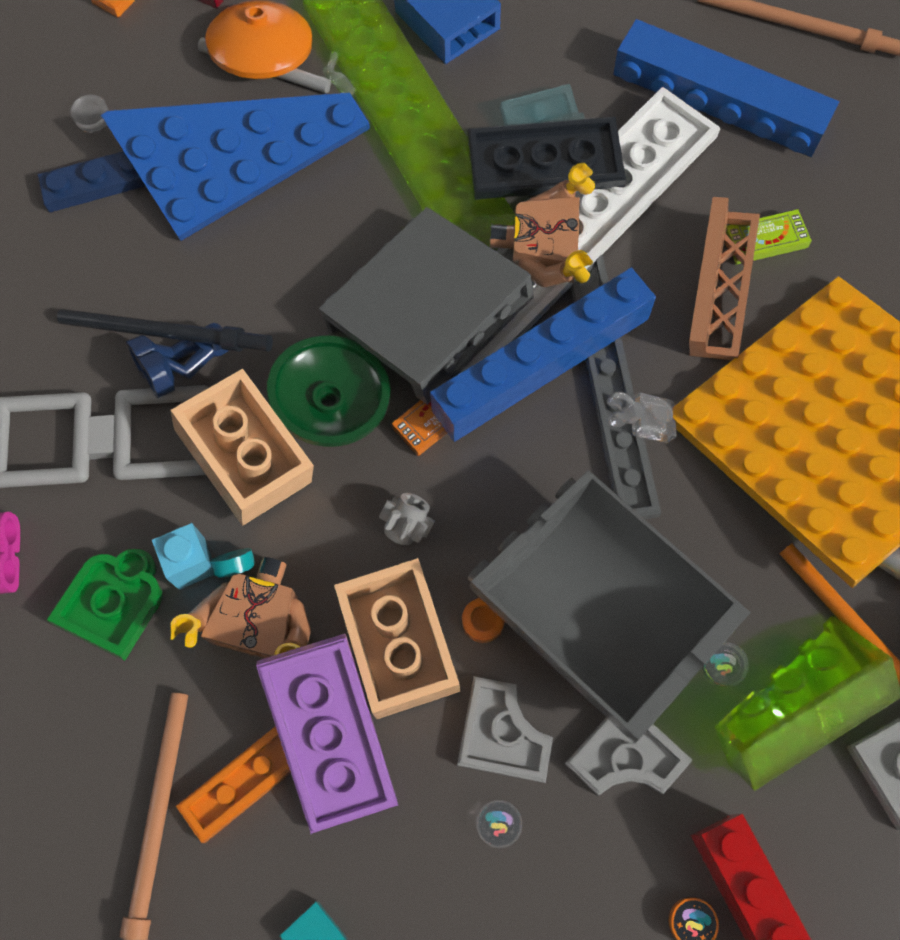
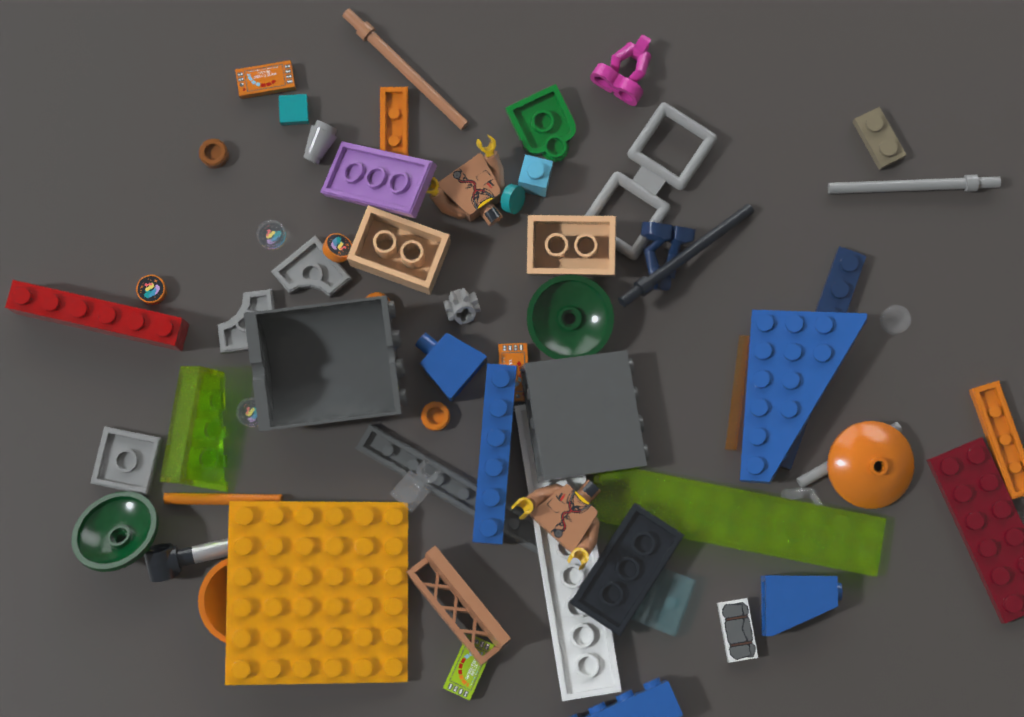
camera: 125 degrees right, 10 degrees up
(279, 195) = (737, 393): none -> clear orange bar
(332, 861) = (319, 141): none -> light grey cone
(451, 722) = (336, 247): none -> tile
(482, 482) = (450, 363): none -> blue torso
(513, 45) = (737, 630): none -> tile
(551, 459) = (435, 416): none -> orange tile

